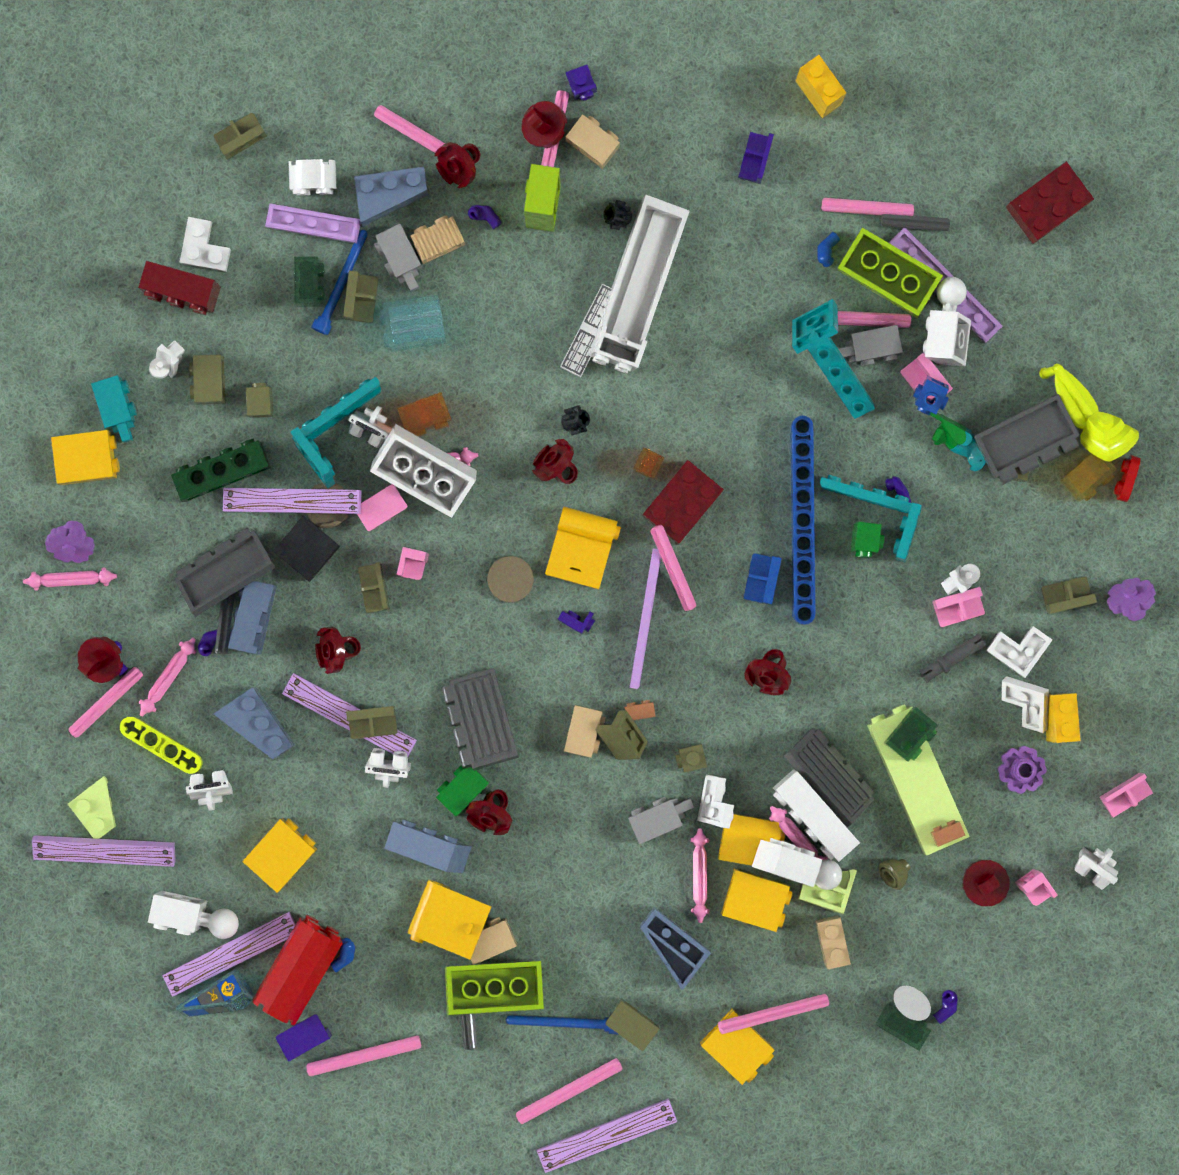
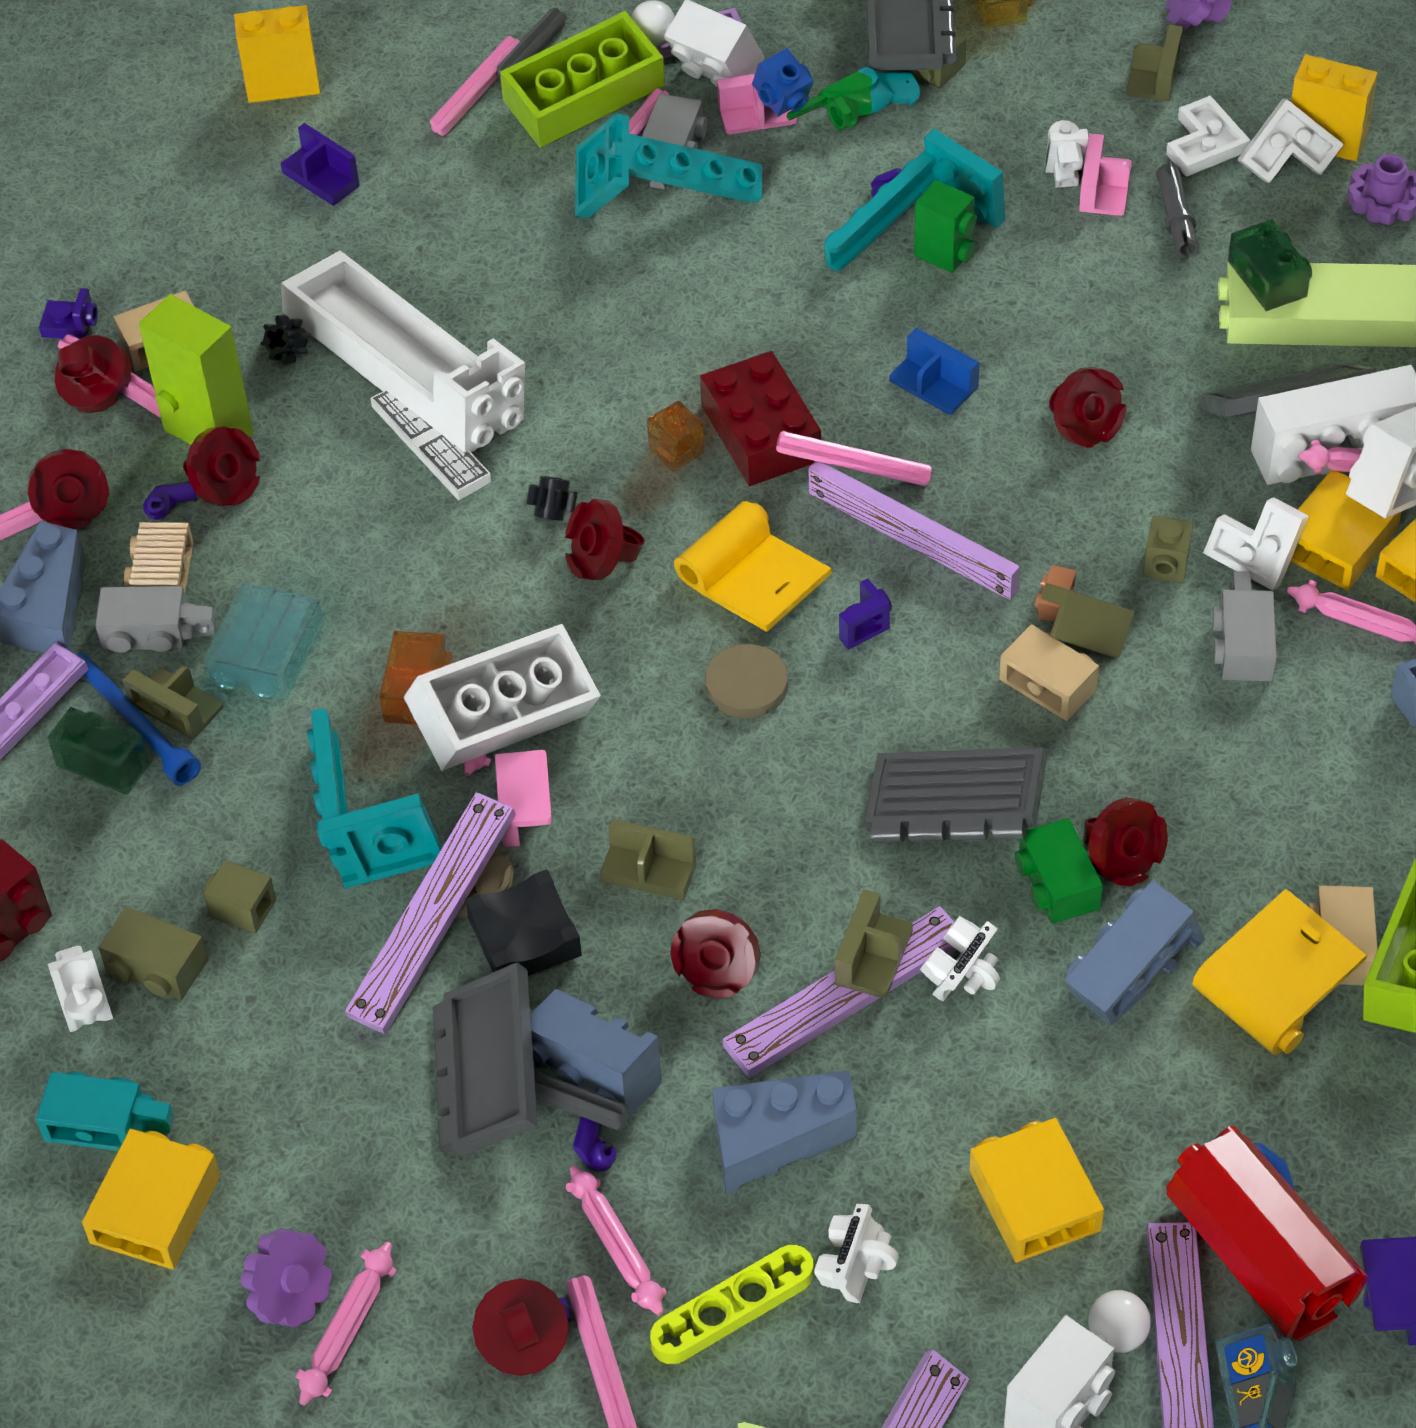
camera: 60 degrees left, 35 degrees down
(184, 475) = (312, 1060): dark green brick -> none
(372, 422) = (368, 770): white hips -> none
(412, 563) = (636, 779): bright pink panel -> none
(509, 236) = (222, 466): none -> dark red tile
(807, 509) = (875, 296): blue beam -> none
(824, 249) = (503, 146): blue arm -> none

